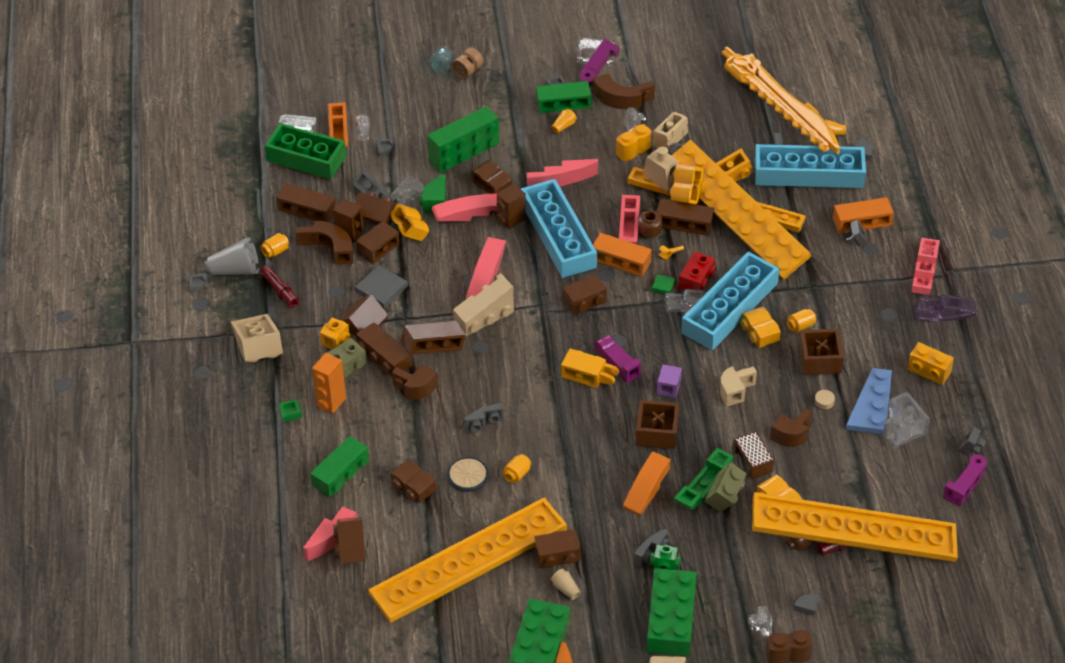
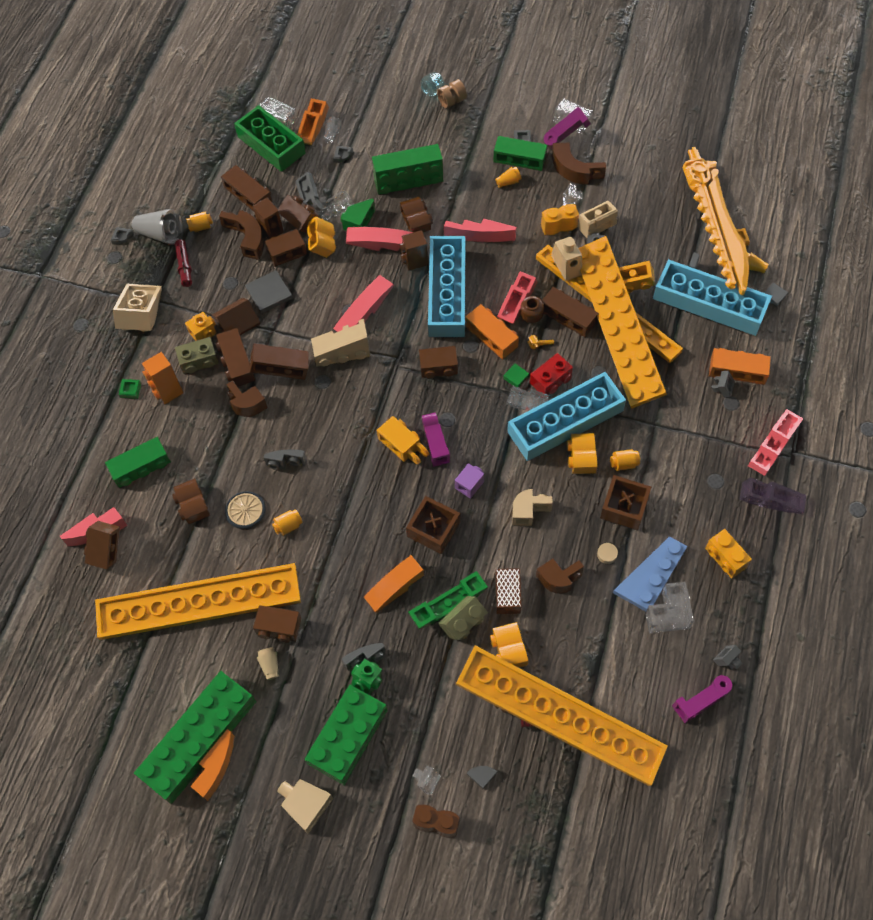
camera: 25 degrees right, 15 degrees up
(686, 184) = (581, 281): light orange brick -> none

